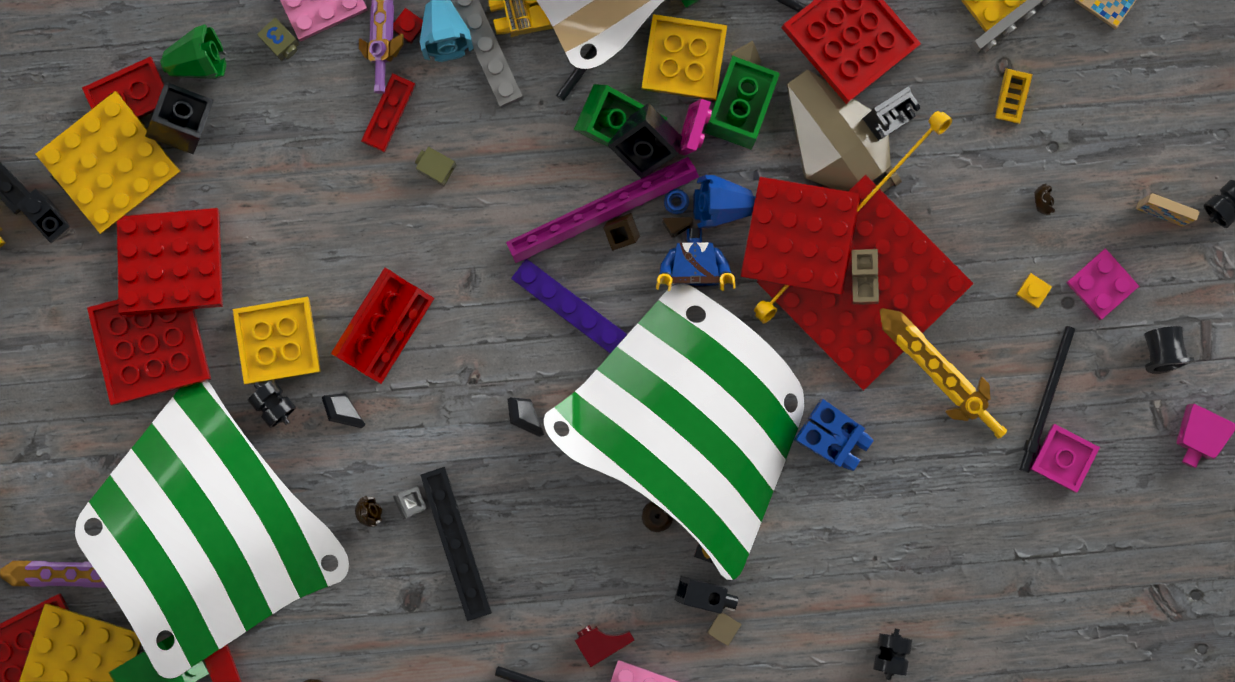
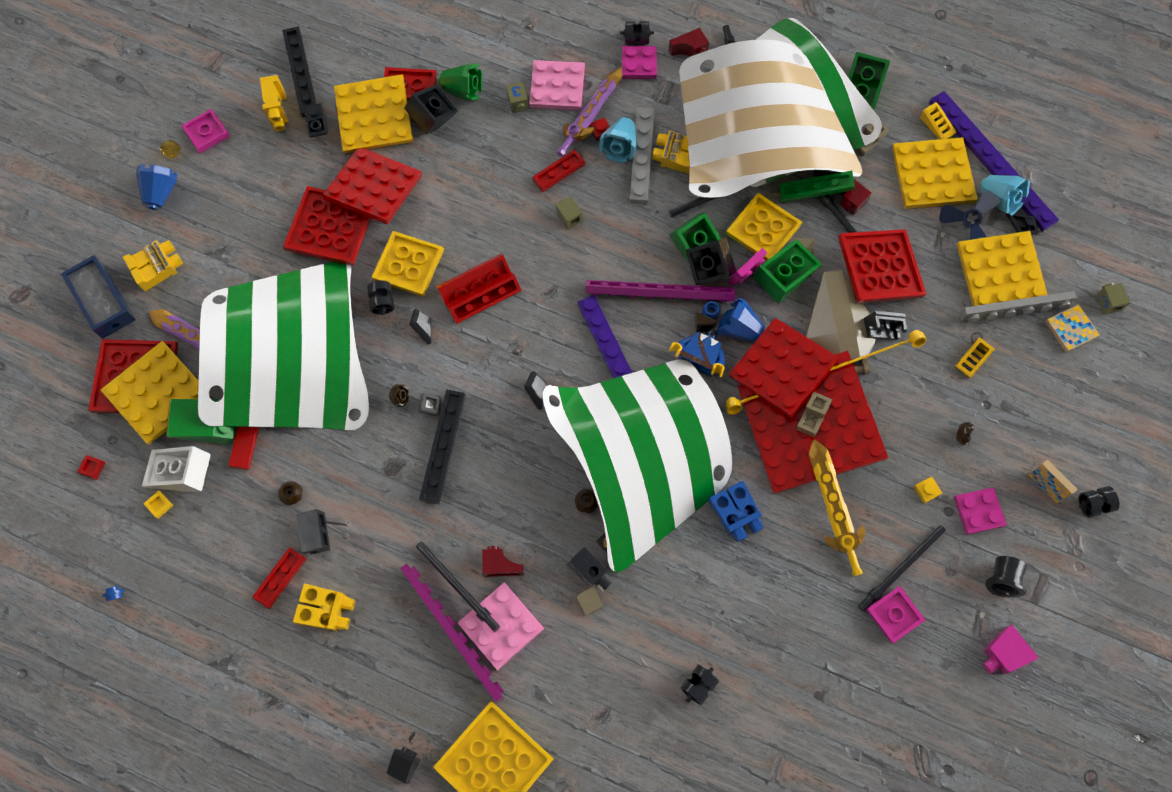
camera: 30 degrees right, 15 degrees down
(621, 231) = (664, 307): dark brown brick -> none

